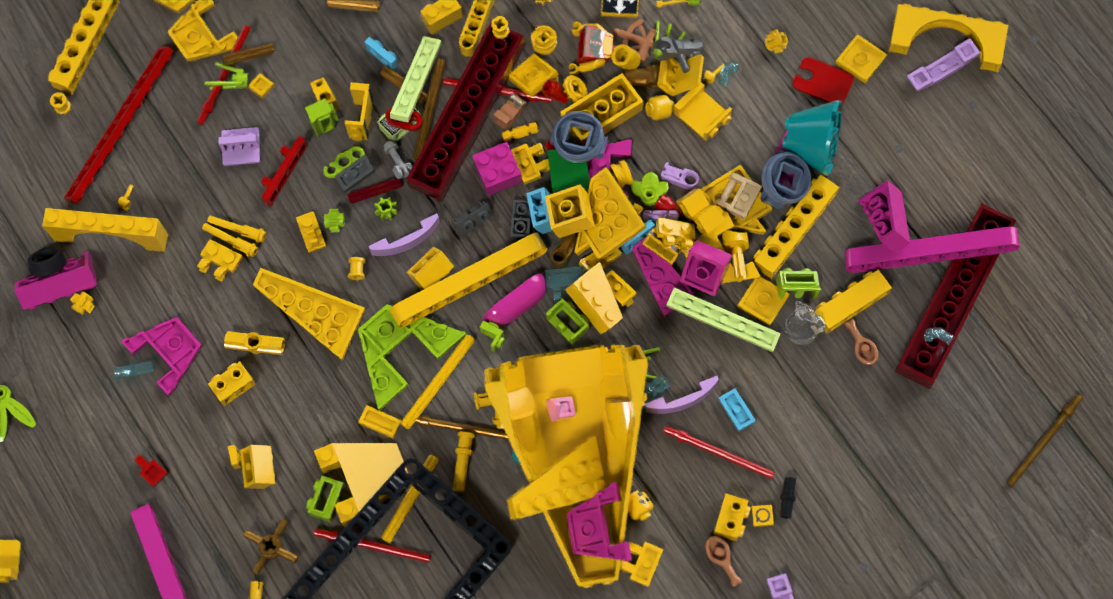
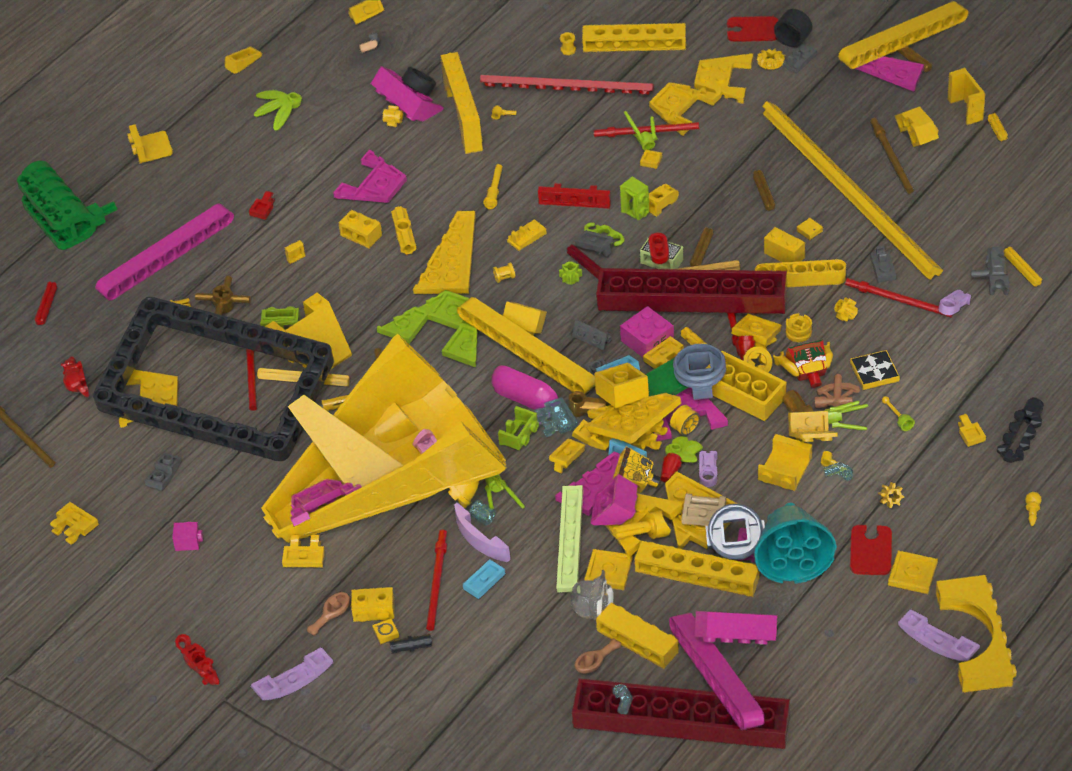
camera: 70 degrees right, 25 degrees down
(133, 370) = (347, 166): clear light blue axle -> none
(220, 255) = (476, 186): yellow plate -> none
(240, 146) = (585, 162): lavender bracket -> none
(247, 231) = (507, 201): yellow pin -> none
(248, 54) = (673, 136): pearl gold axle -> none
(257, 466) = (290, 266): yellow brick -> none
(334, 220) = (542, 242): lime gear -> none
(362, 96) = (654, 222): yellow panel -> none
(377, 49) = (721, 224): medium azure plate -> none
(379, 421) = (367, 336): yellow tile -> none
(400, 170) = (632, 258): light grey hinge -> none
(415, 79) = (703, 244): yellowish green plate -> none
(428, 226) = (565, 305): lavender slope -> none
(437, 382) = (435, 361): yellow axle -> none
(492, 330) = (481, 385): lime bracket -> none
(498, 32) = (777, 274): yellow bush -> none
(509, 112) = (710, 326): nougat leg -> none
(595, 299) = (547, 434): yellow wedge -> none
(625, 57) = (808, 385): yellow piece -> none
(639, 506) = (357, 532): yellow head -> none
(648, 214) = (658, 464): lavender axle -> none
(659, 107) = (769, 426): yellow head -> none
(674, 230) = (640, 467): yellow plate -> none
(678, 49) = (835, 417): dark grey piece -> none
(698, 209) = (671, 481): yellow brick -> none
(798, 282) = (637, 598): lime window -> none

